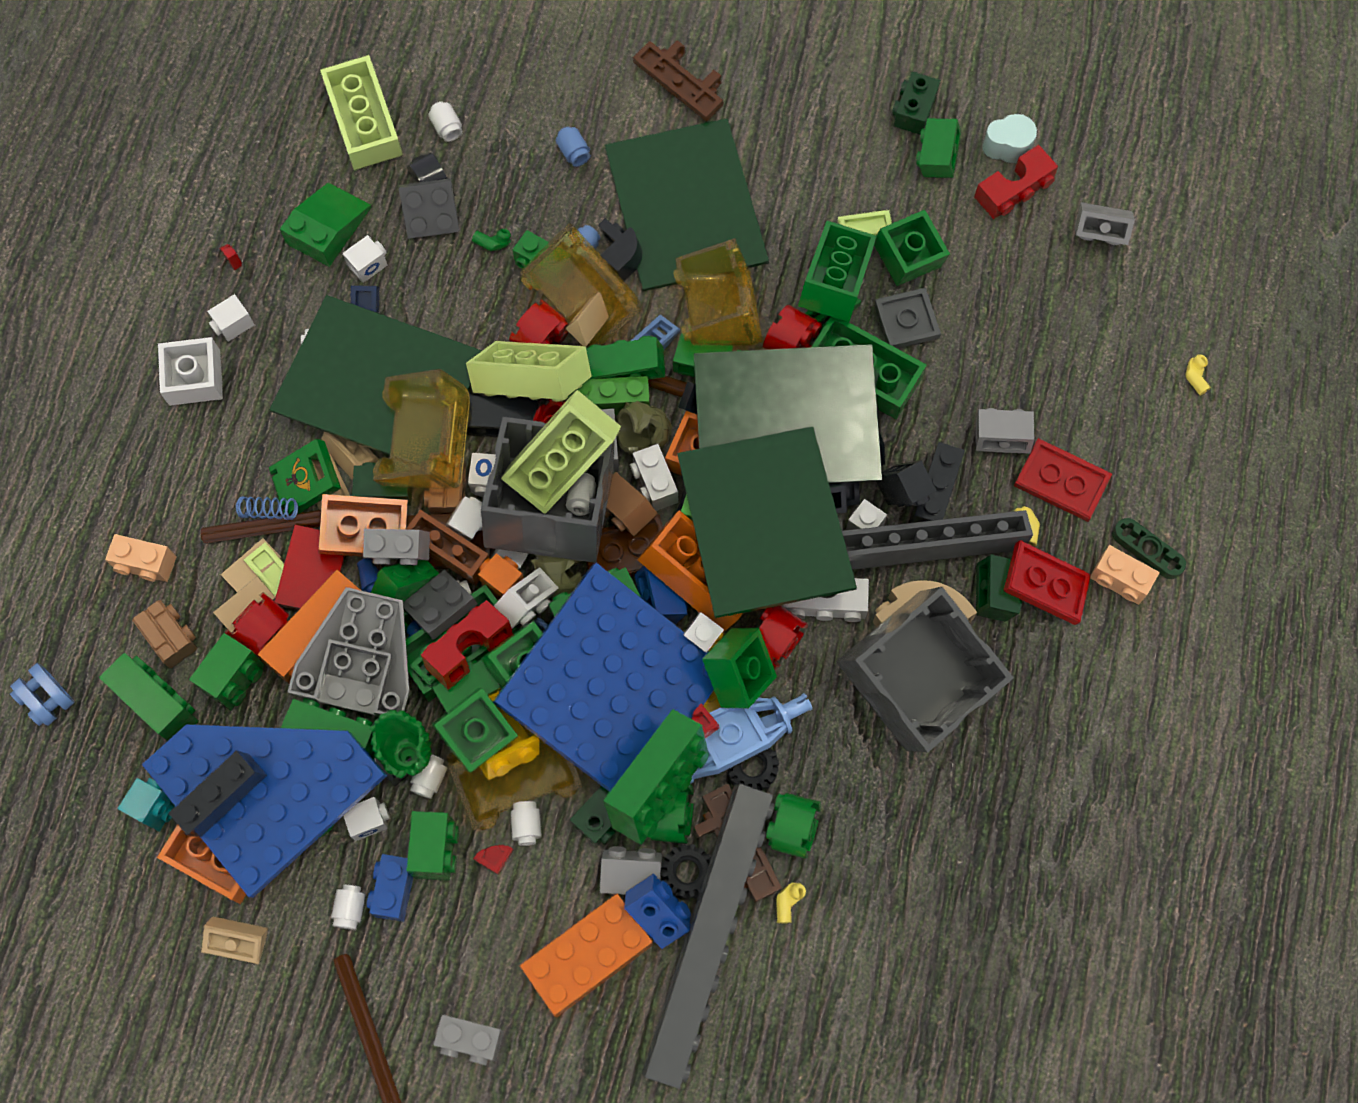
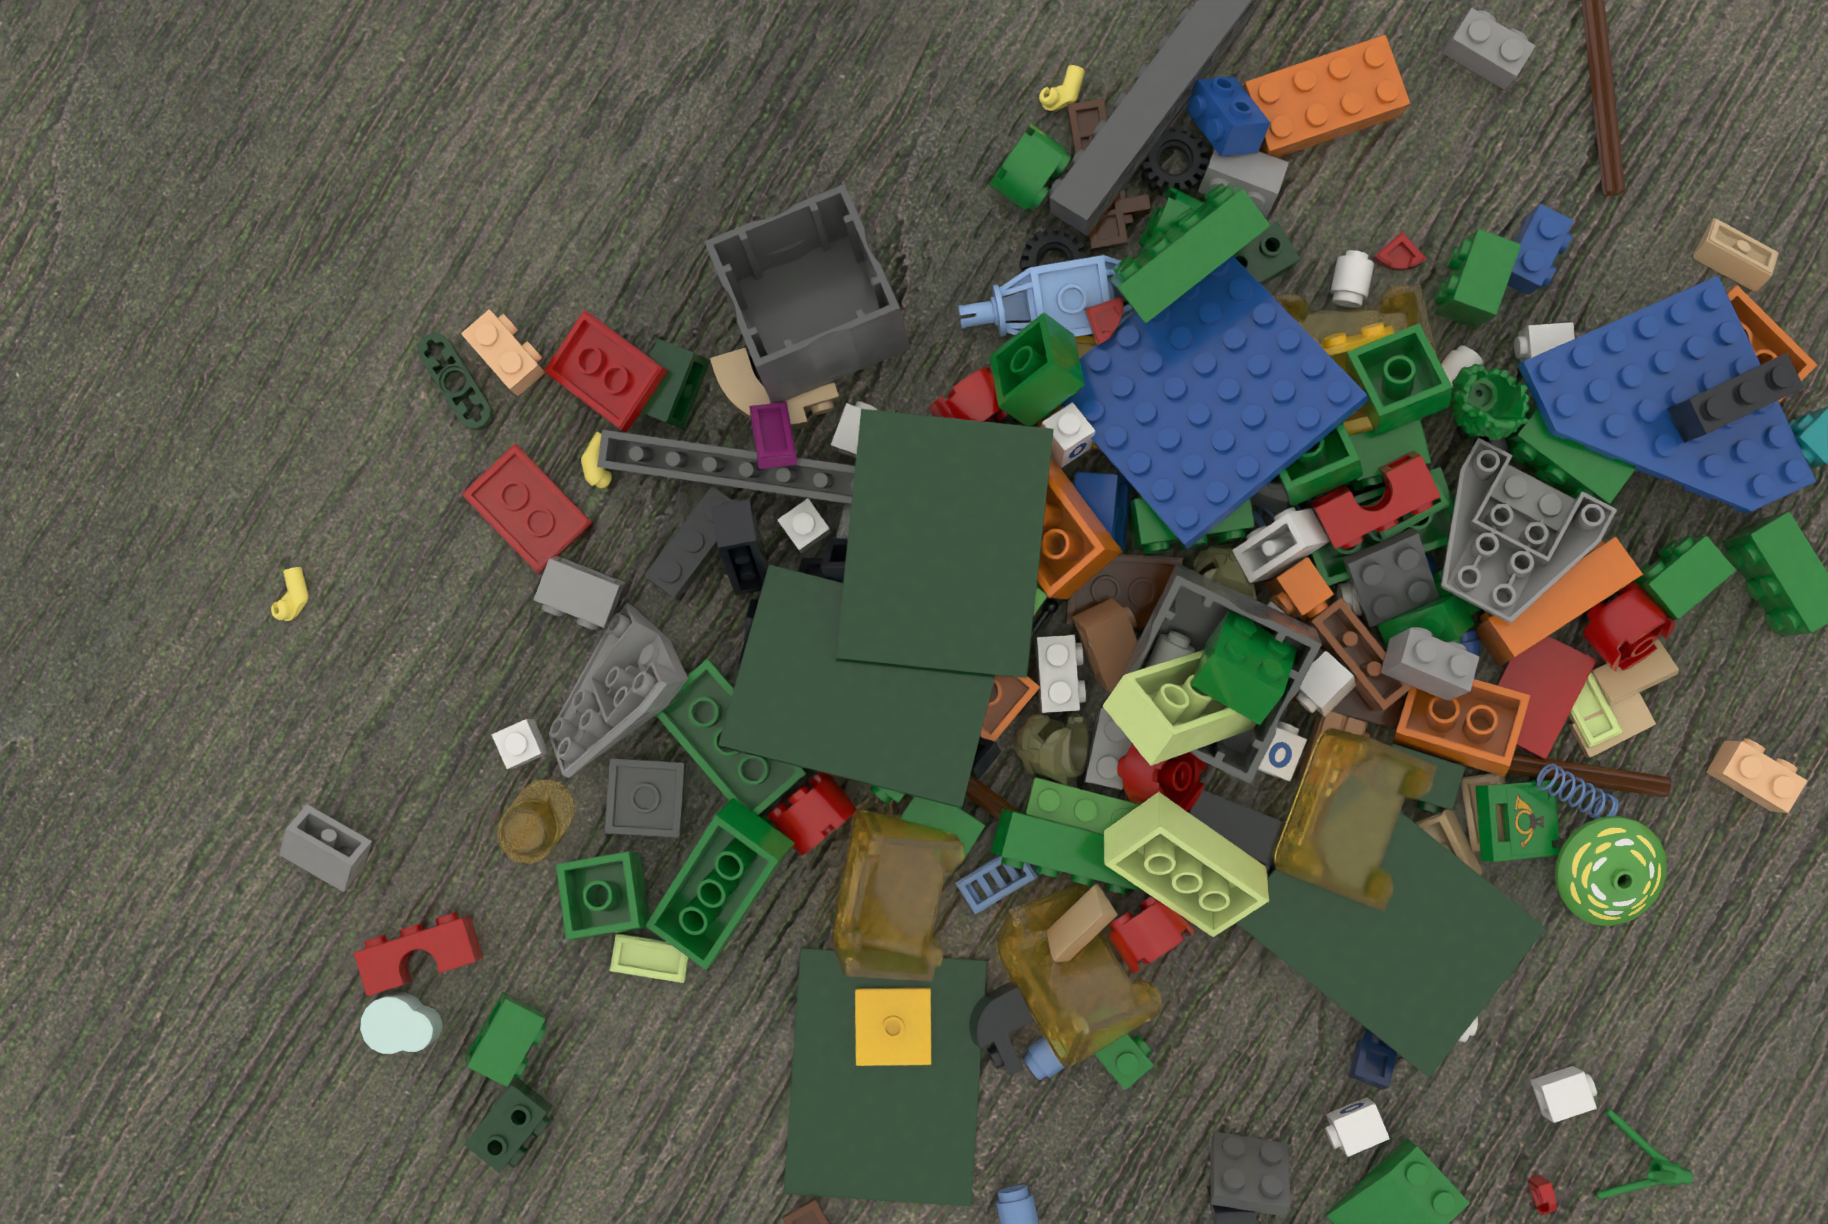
camera: 160 degrees left, 15 degrees up
(153, 293) = (1660, 1169): none -> green plant
(165, 633) = (1744, 664): medium nougat brick -> none
(190, 371) = (1638, 1026): white brick -> none
(231, 467) = (1595, 860): none -> bright green dish
(348, 907) = (1593, 245): white brick -> none
(492, 243) = (1171, 1098): green arm -> none
(530, 481) = (1244, 667): none -> green brick
(690, 228) = (893, 1026): none -> yellow plate
(912, 563) = (772, 435): none -> magenta tile
(951, 373) = (620, 689): none -> light grey wedge
(973, 286) = (535, 821): none -> clear yellow piece
(1004, 325) = (520, 743): none -> white brick

